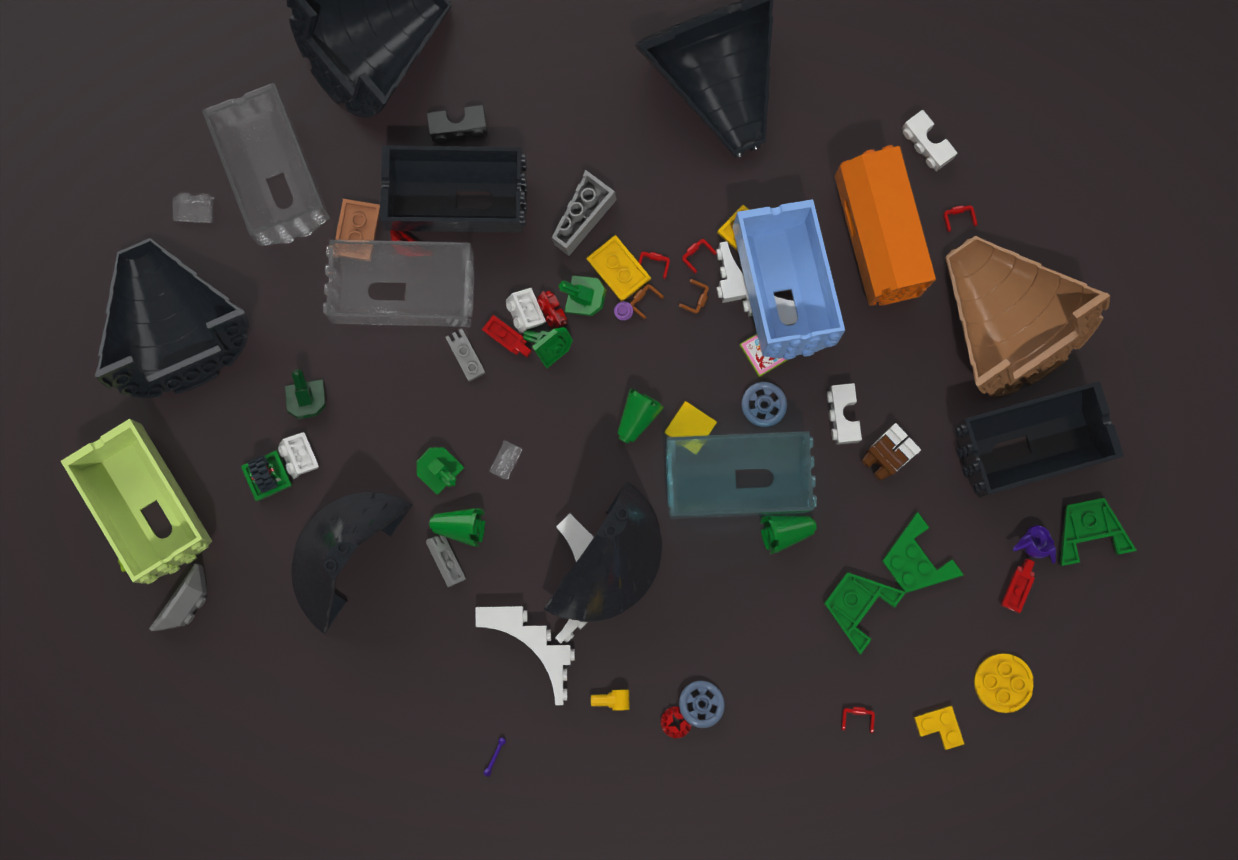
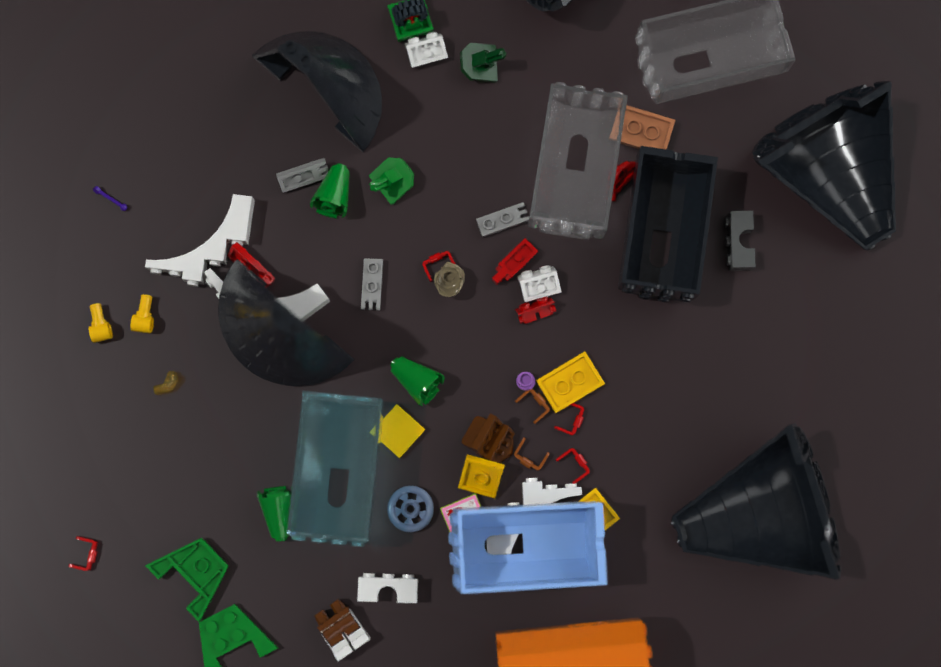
camera: 100 degrees right, 0 degrees up
(505, 460) = (391, 244): clear hips -> none
(512, 415) = (434, 258): none -> red piece
(534, 397) = (449, 279): none -> dark tan hair
(535, 611) = (240, 253): none -> red hinge
(547, 475) = (372, 283): none -> light grey hinge
(549, 345) = (498, 301): green piece -> none
(583, 212) = (630, 352): light grey wedge -> none
(584, 295) = (546, 343): green piece -> none
(631, 742) = (99, 329): none -> yellow pin
(672, 731) = (119, 379): red gear -> none
(678, 662) = (168, 385): none -> clear yellow arm
(686, 337) = (489, 438): none -> reddish brown piece
(717, 700) = (126, 417): sand blue plate -> none
(723, 339) = (481, 476): none -> yellow plate
(940, 721) = (66, 639): yellow plate -> none

